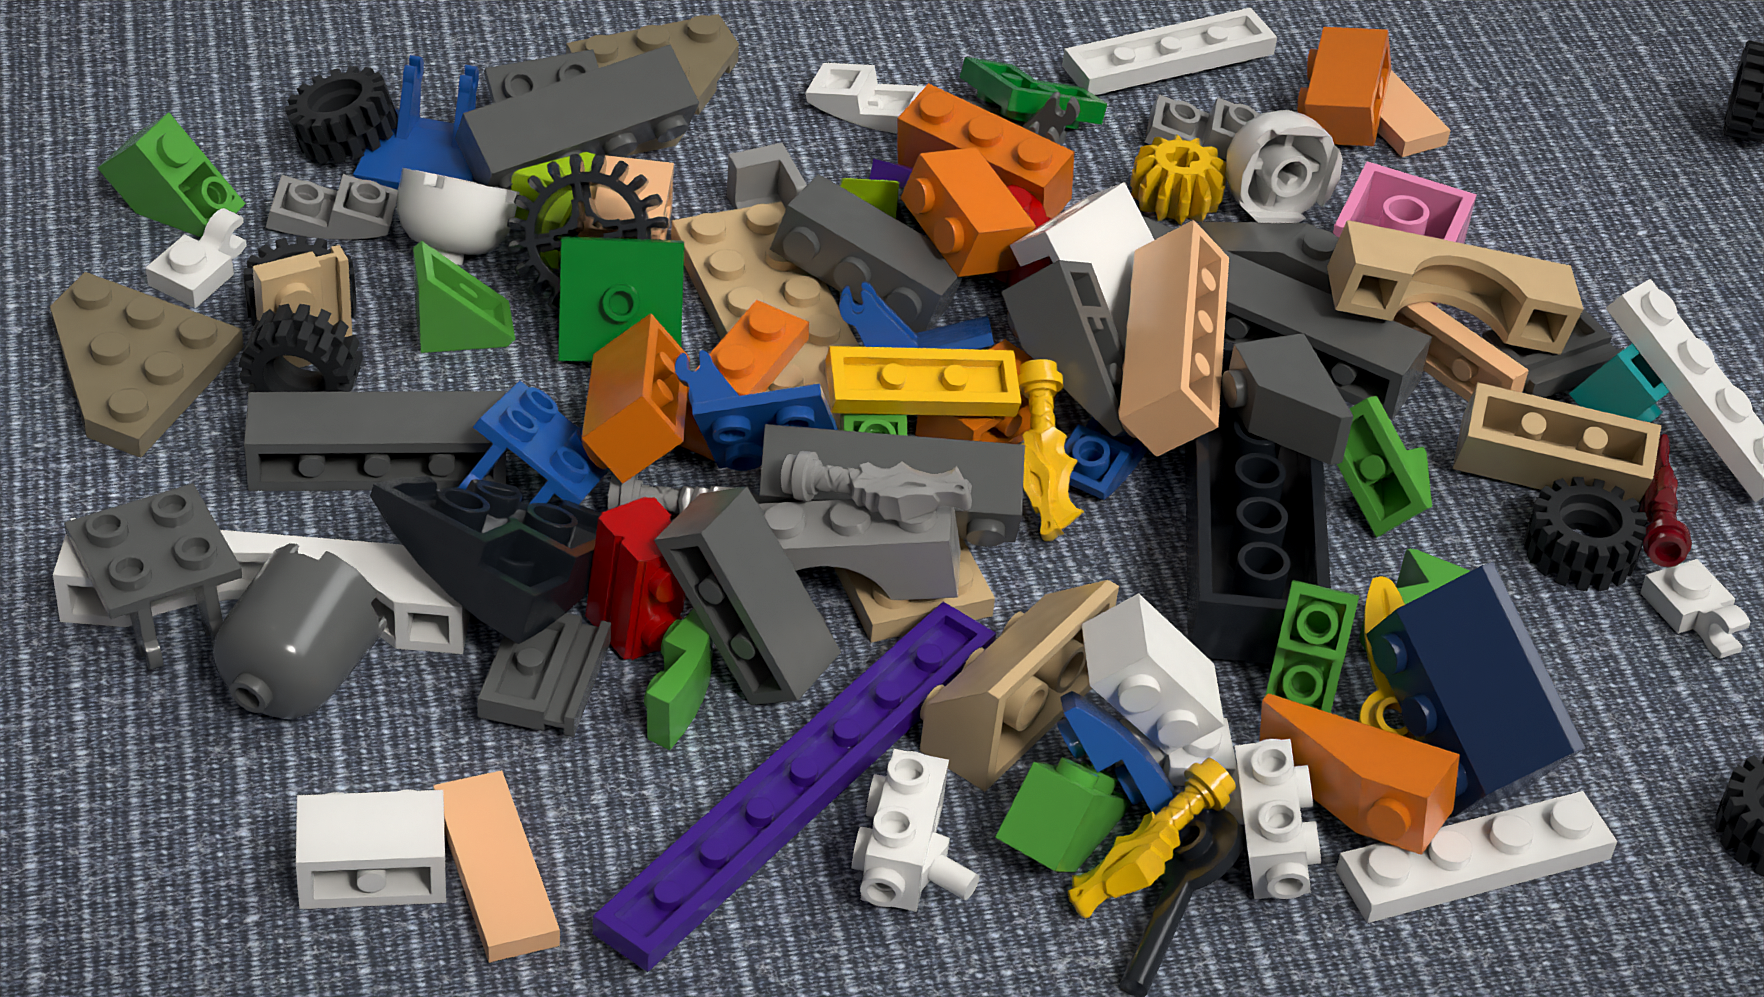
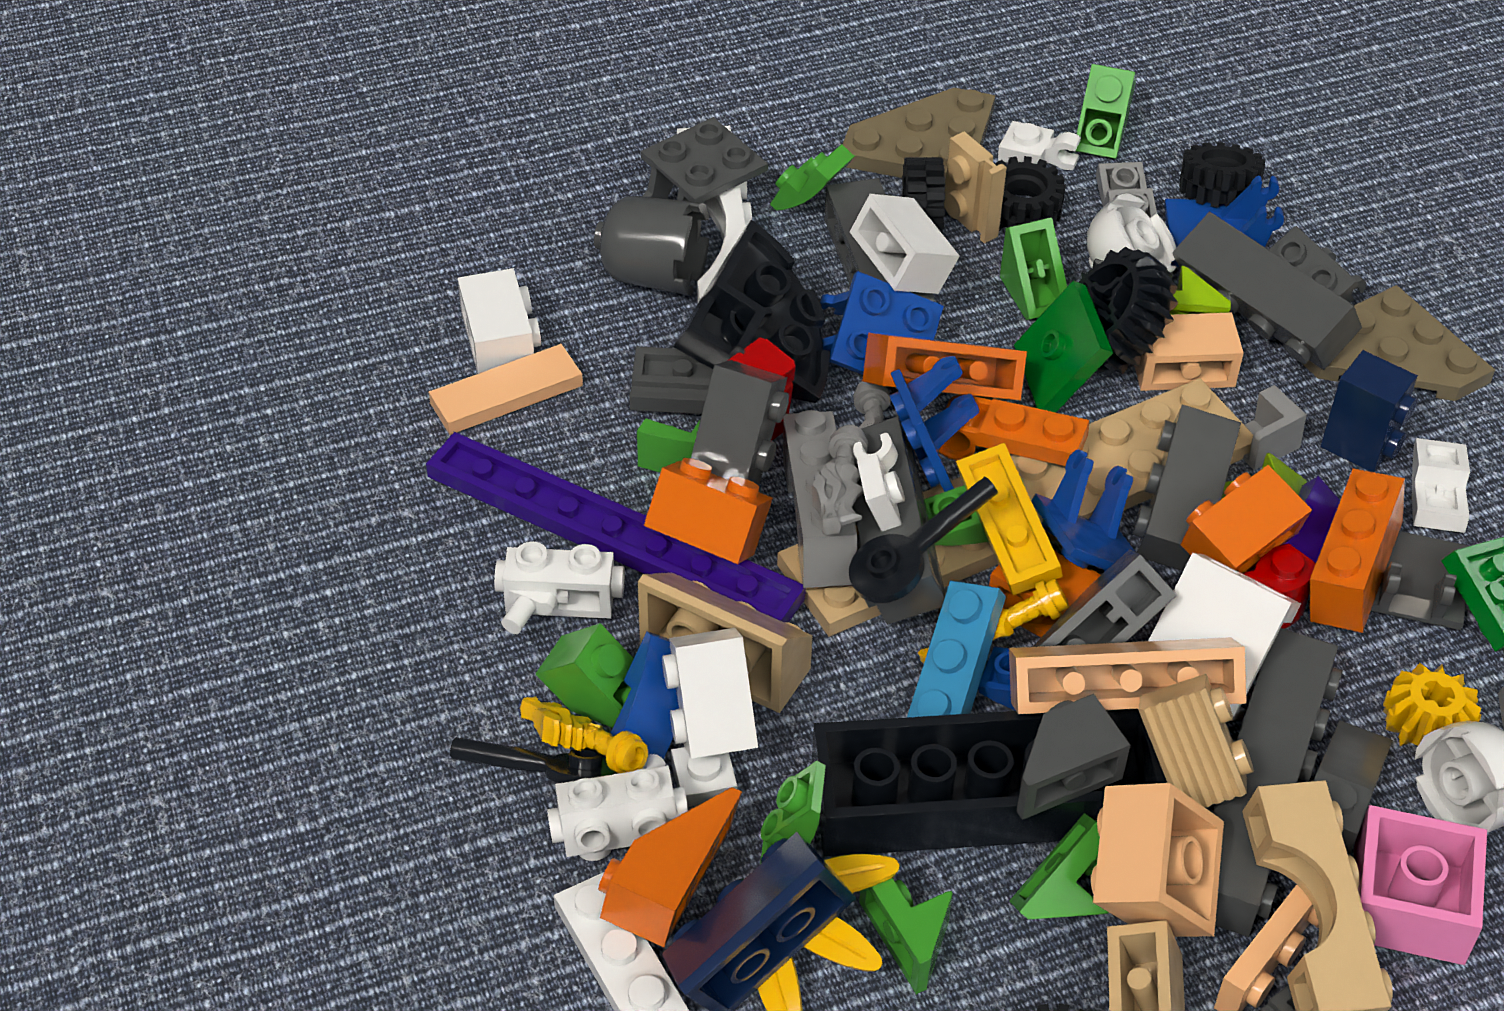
camera: 85 degrees right, 5 degrees up
(224, 453) = (804, 183): none -> bright green slope
(436, 370) = (904, 244): none -> white brick
(790, 95) = (1369, 411): none -> dark blue brick
(839, 648) = (708, 510): none -> orange brick
(886, 447) = (881, 488): none -> white plate
(1003, 476) = (894, 563): none -> black piece
(1097, 492) = (958, 650): none -> dark azure plate
(1272, 298) = (1194, 742): none -> tan brick
(1417, 366) = (1158, 858): none -> light nougat brick

